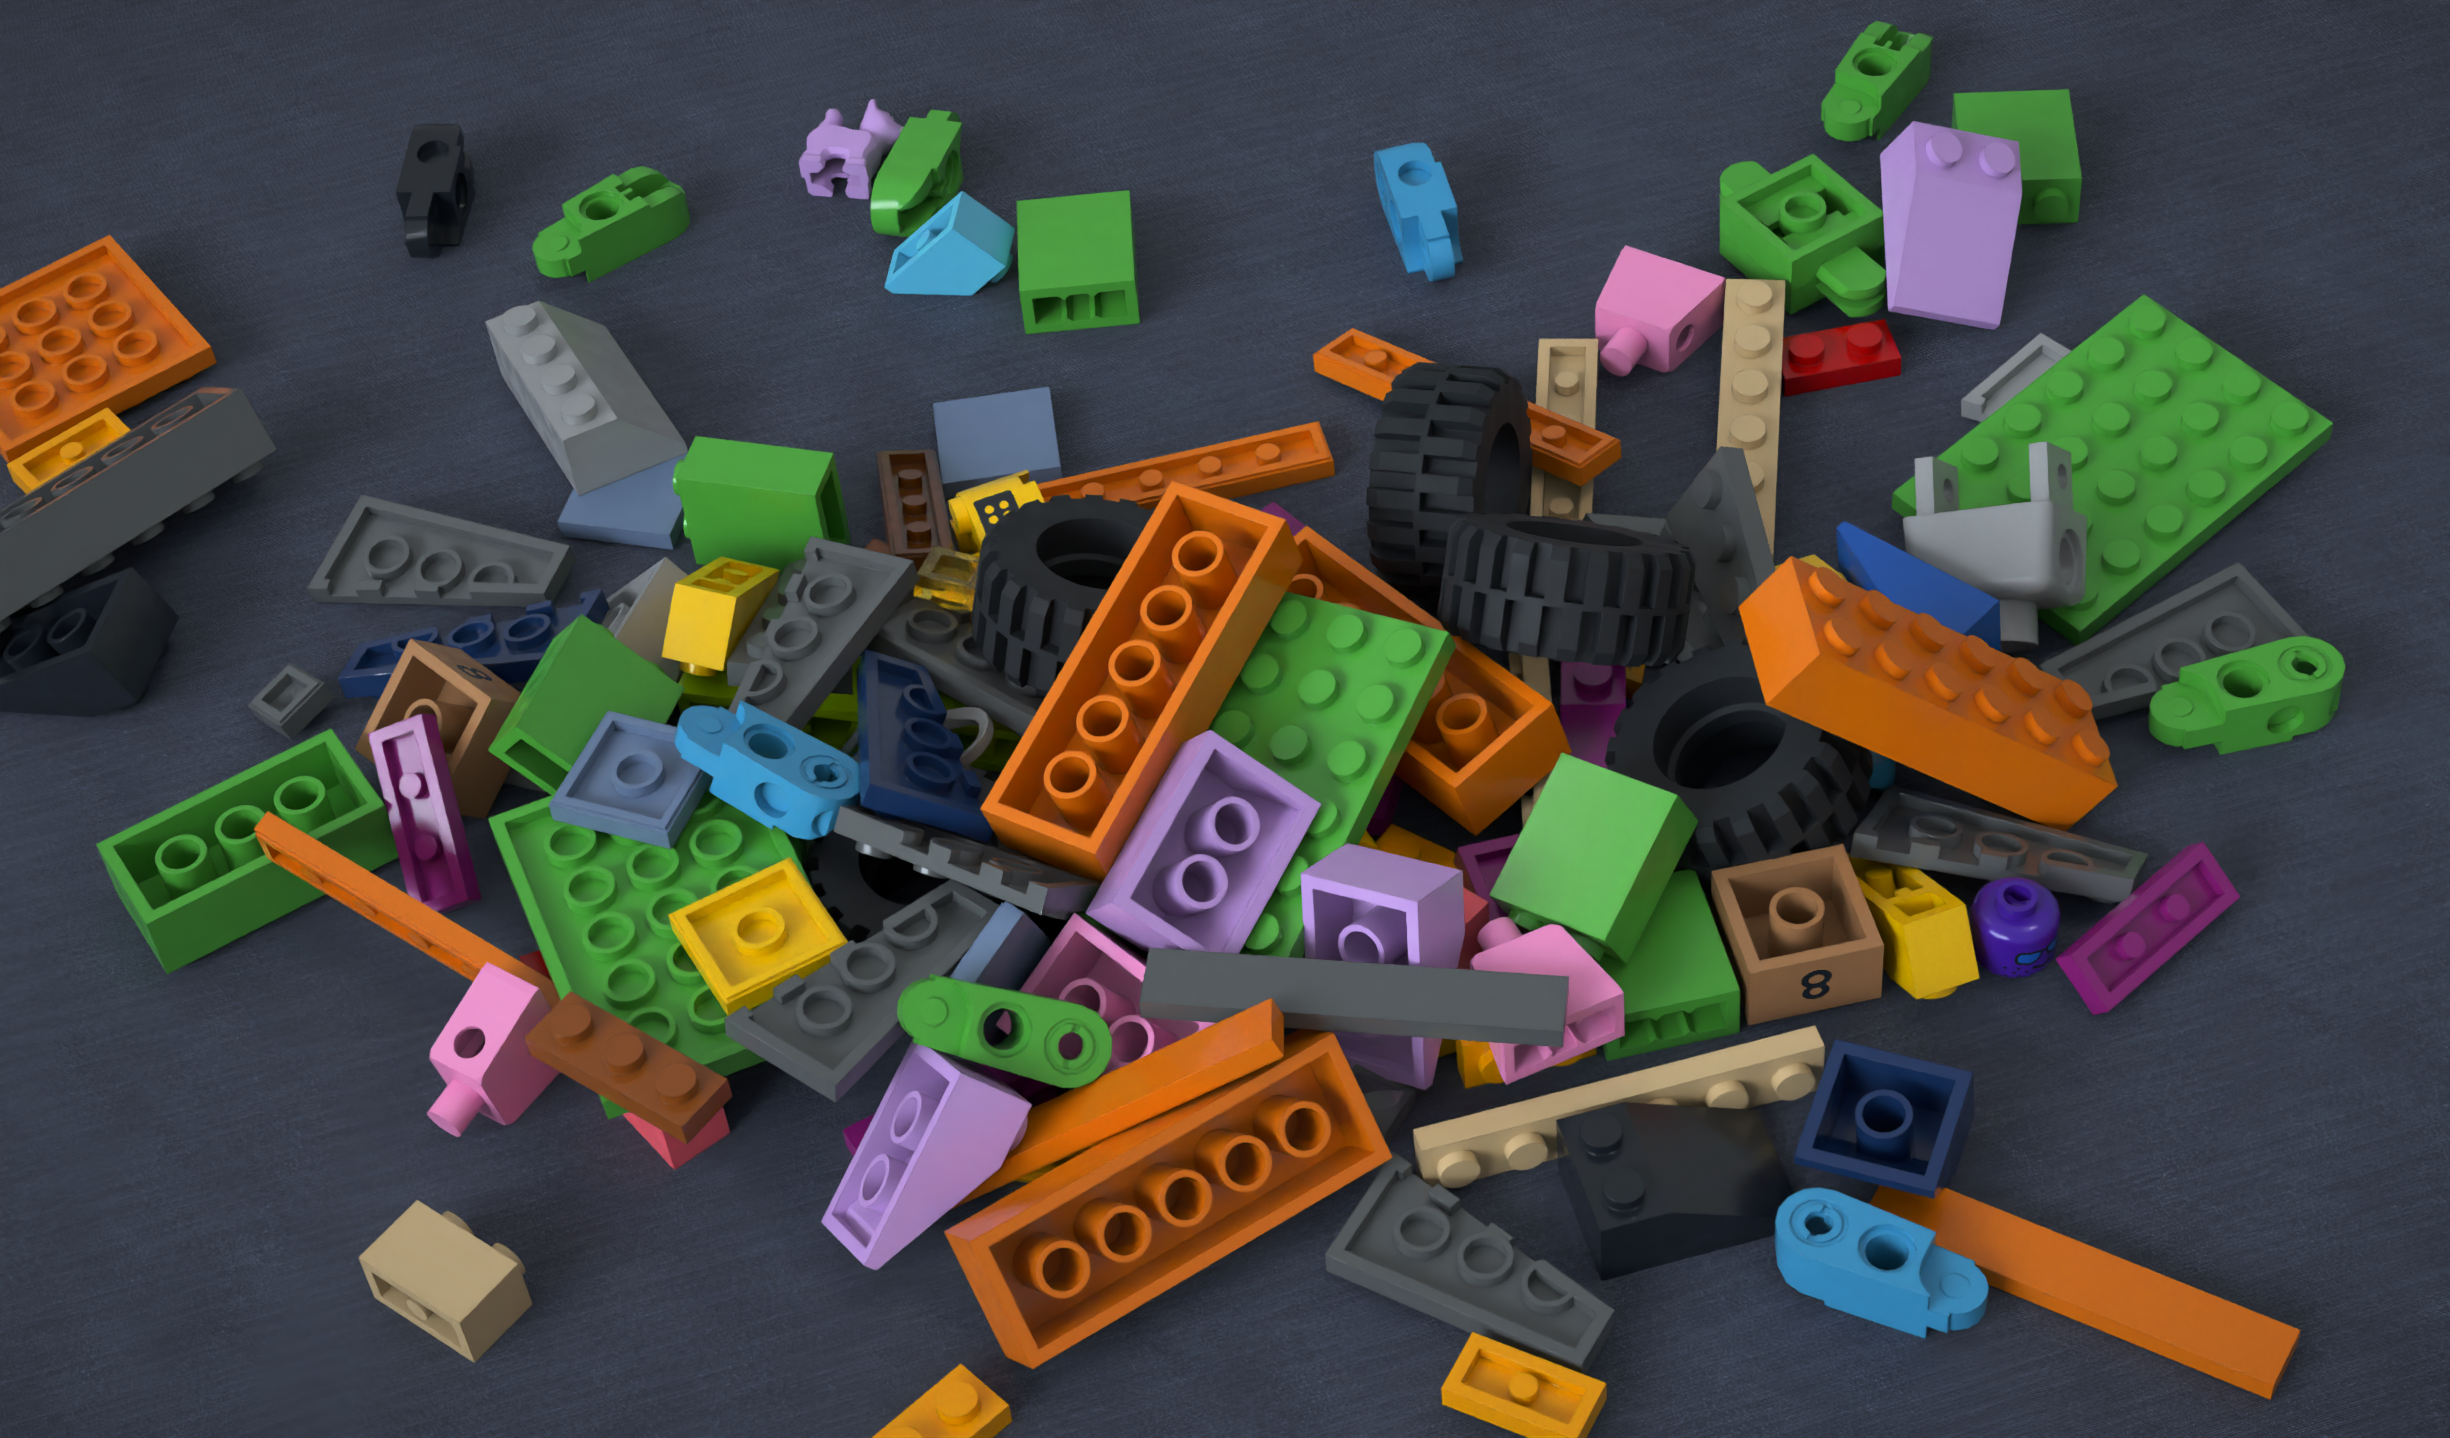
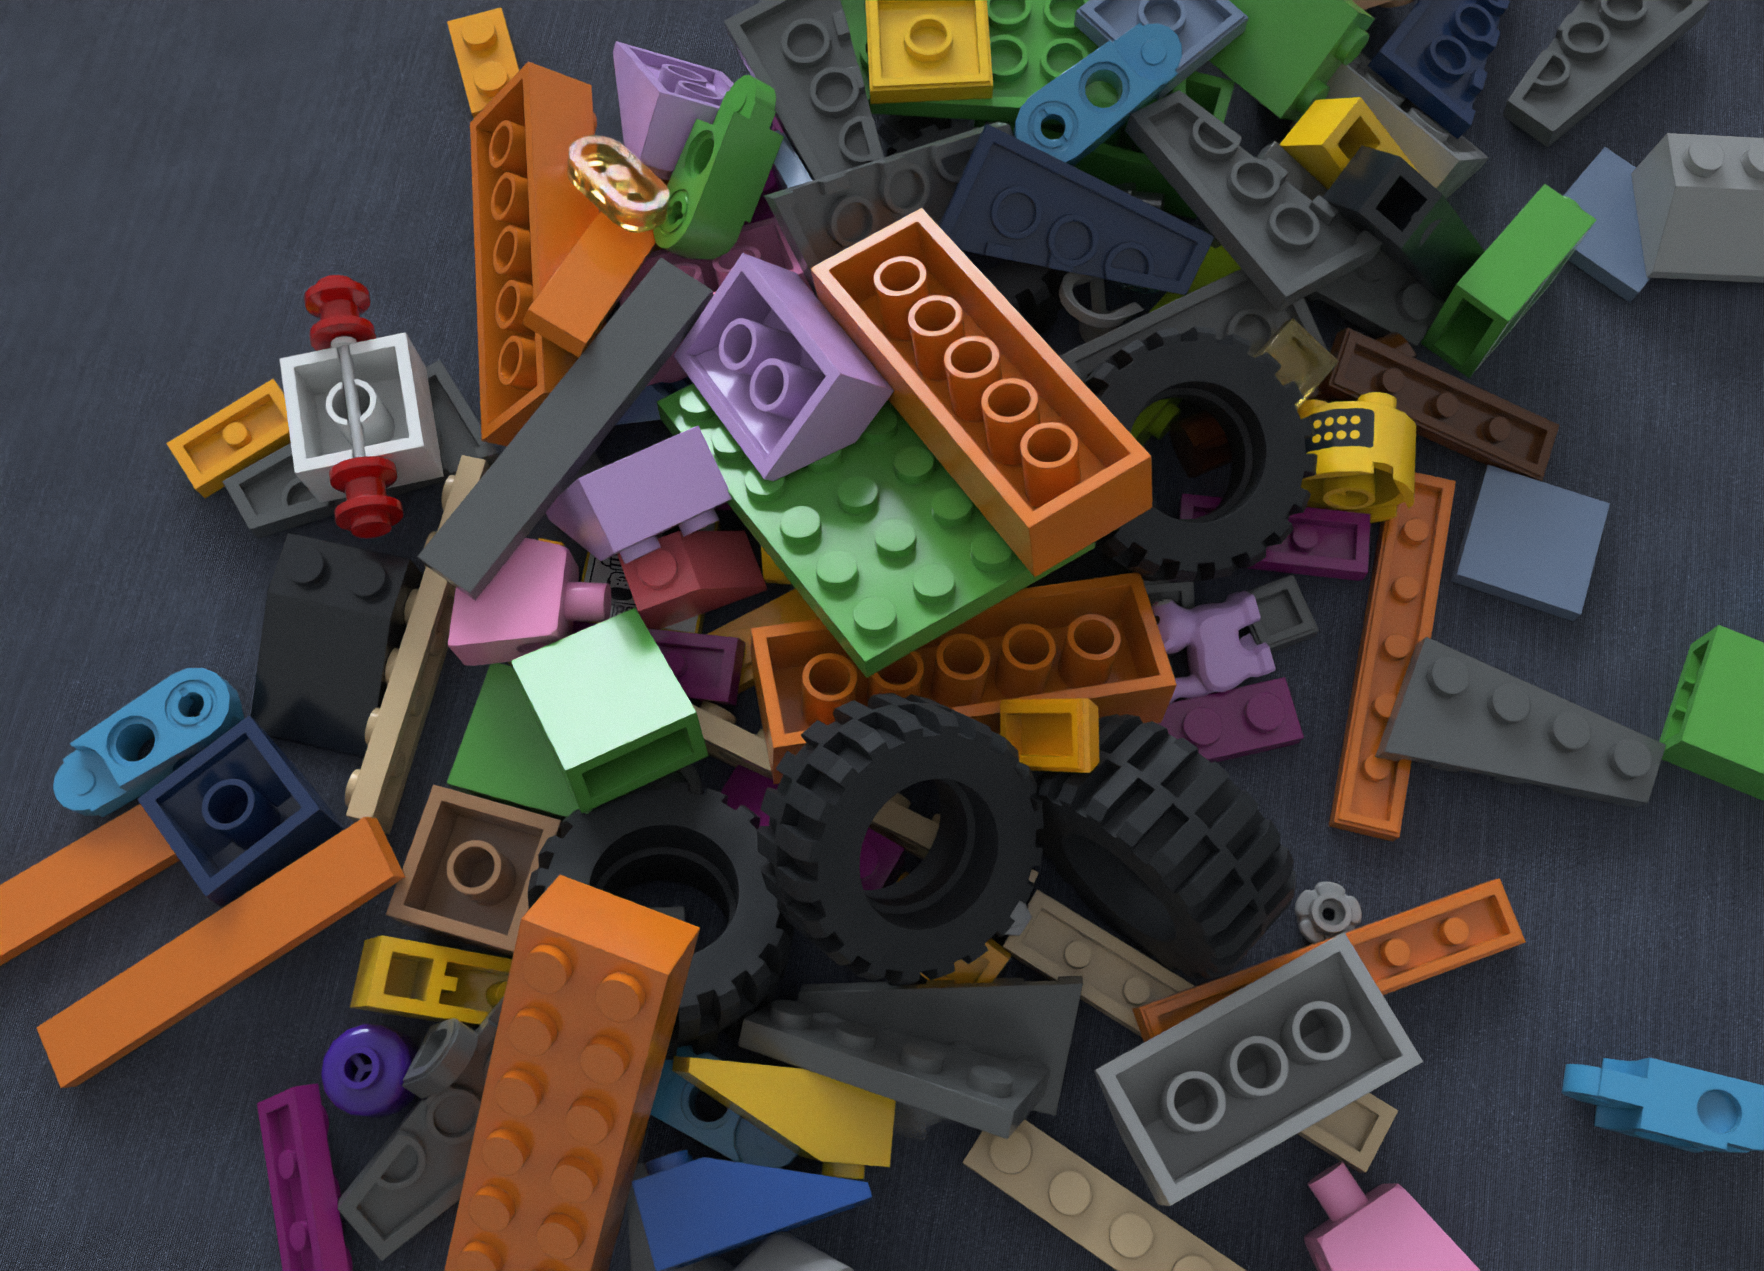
camera: 115 degrees right, 25 degrees up
(769, 544) = (1409, 218): none -> black slope
(1067, 1102) = (617, 183): none -> clear yellow plate
(1184, 391) = (1496, 725): none -> dark grey wing
(1419, 528) = (1053, 733): none -> light orange tile
(1446, 1217) = (358, 411): none -> white brick
(1593, 374) = (1254, 1070): none -> light grey slope
(1963, 858) = (440, 1058): none -> dark grey tile
(2015, 1073) = (220, 952): none -> orange tile

